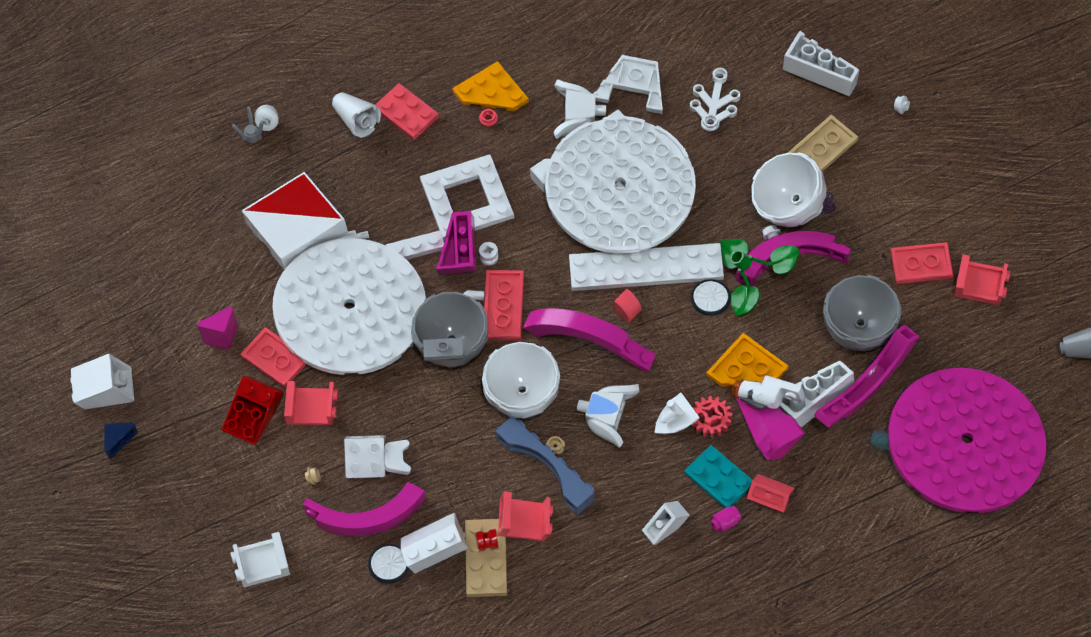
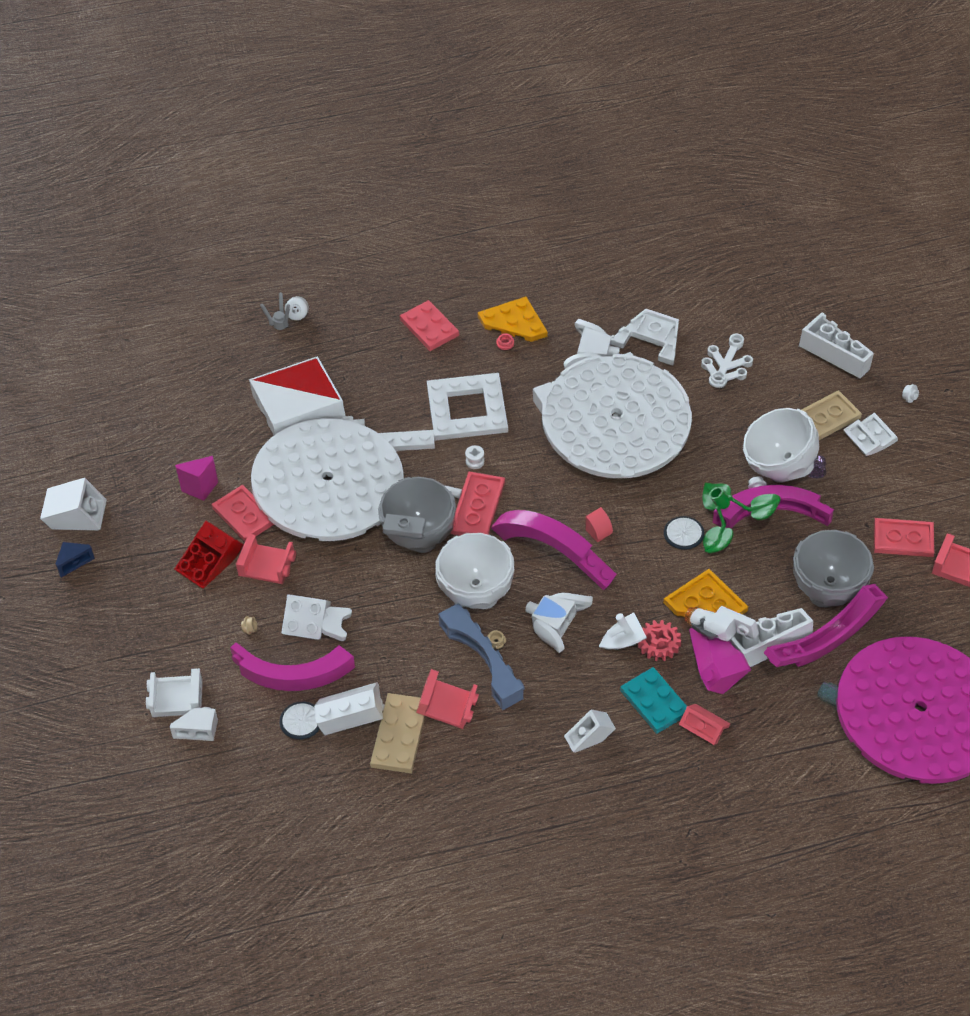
camera: 10 degrees right, 10 degrees down
(290, 588) = (196, 725): none -> white slope
(357, 114) = (382, 318): white cone -> none
(459, 248) = (447, 444): dark pink wedge -> none
(487, 540) = (403, 713): red wheel -> none
(646, 267) = (626, 495): white plate -> none
(725, 519) = (652, 739): dark pink brick -> none
(870, 157) = (870, 435): none -> white slope

